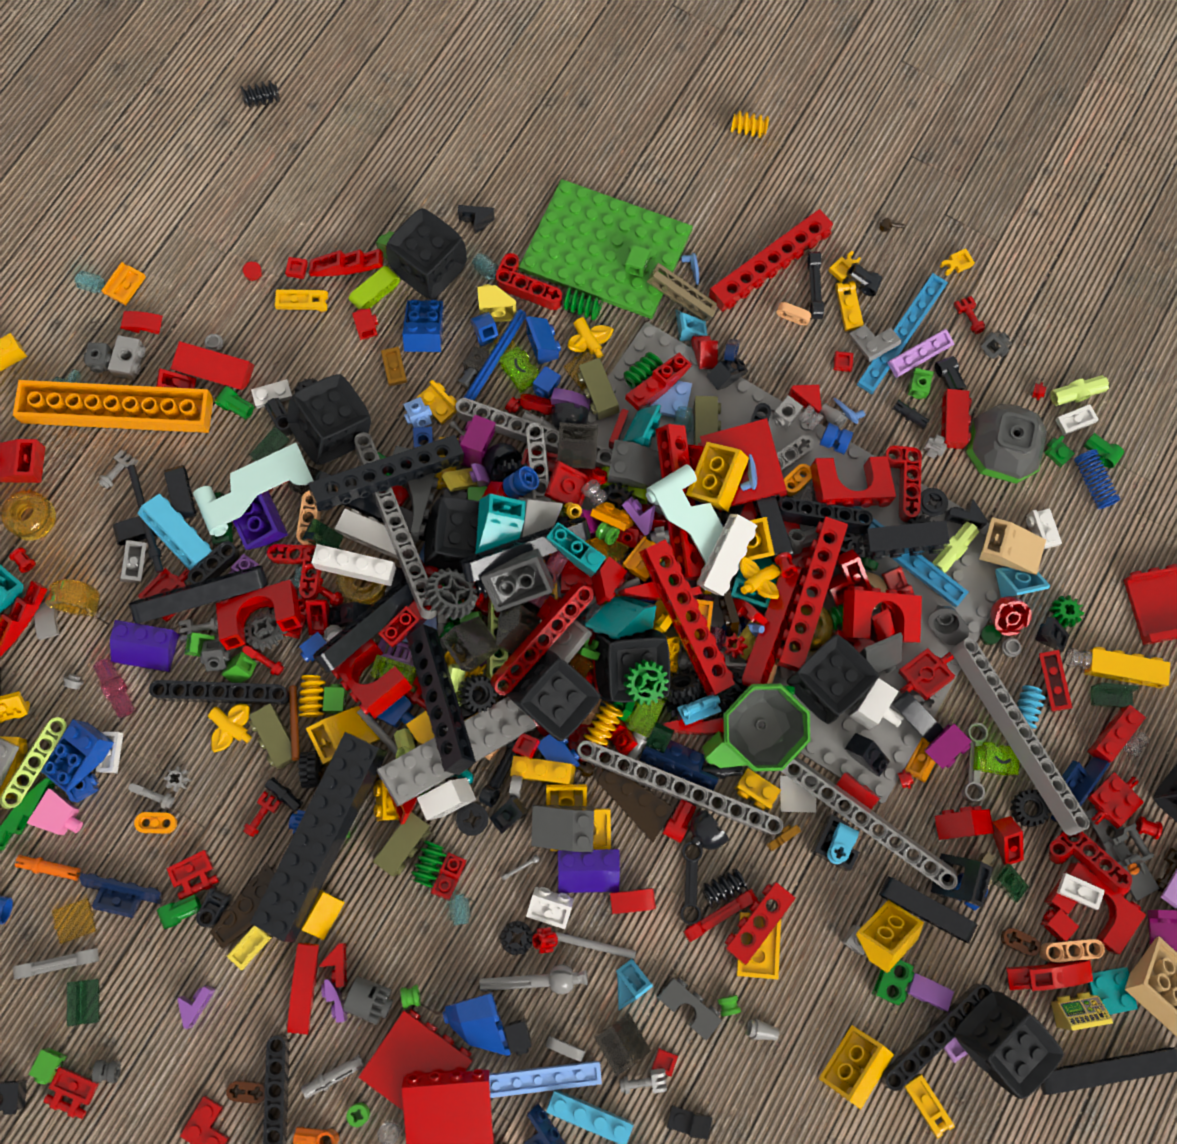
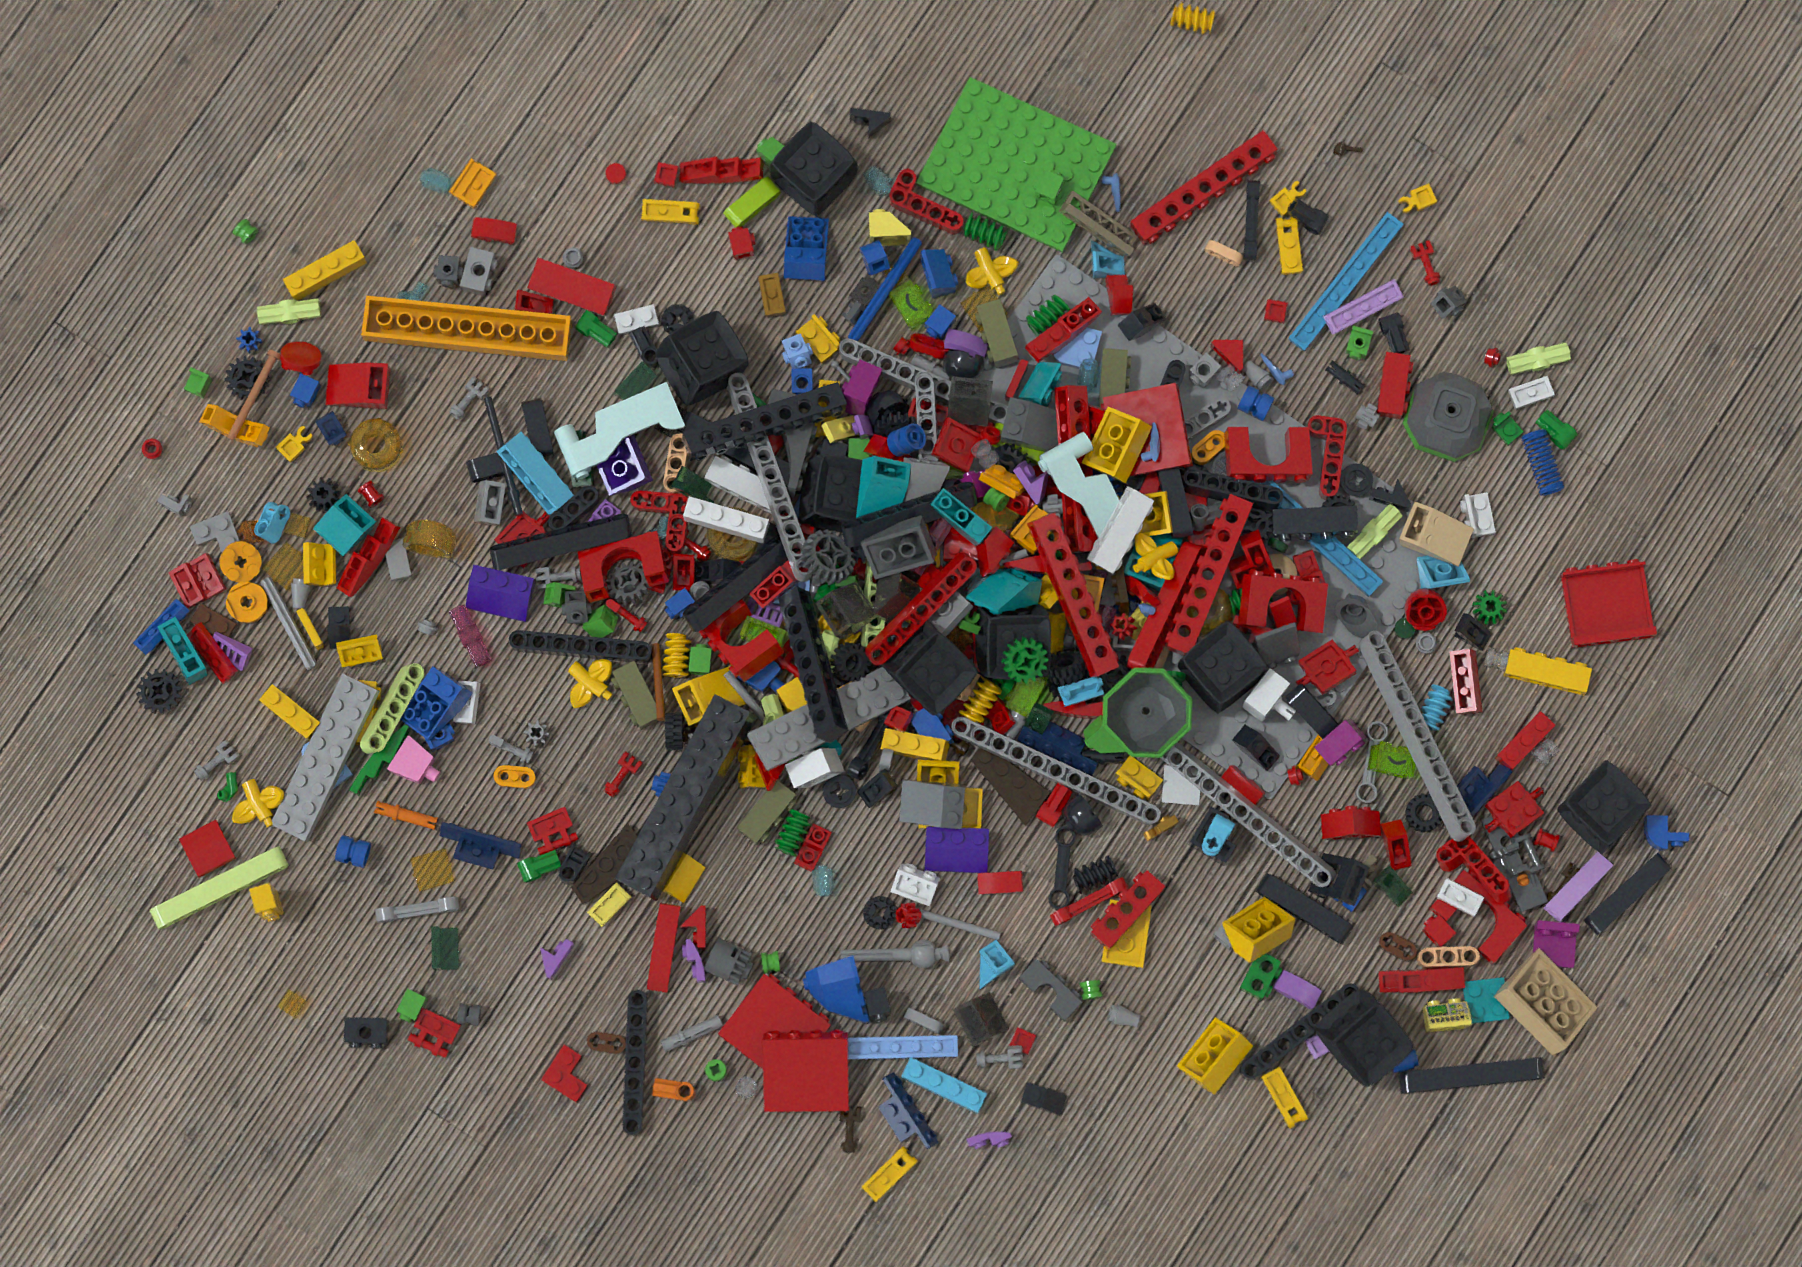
camera: 10 degrees right, 5 degrees up
(283, 794) = (645, 755): black pin -> none
(535, 859) = (902, 835): light grey hinge -> none
(575, 513) = (960, 473): yellow pin -> none
(732, 349) = (1148, 296): dark blue beam -> none
(785, 563) = (1184, 543): red bush -> none
(872, 345) = (1310, 296): light grey plate -> none
(1112, 695) = (1528, 700): clear green panel -> none

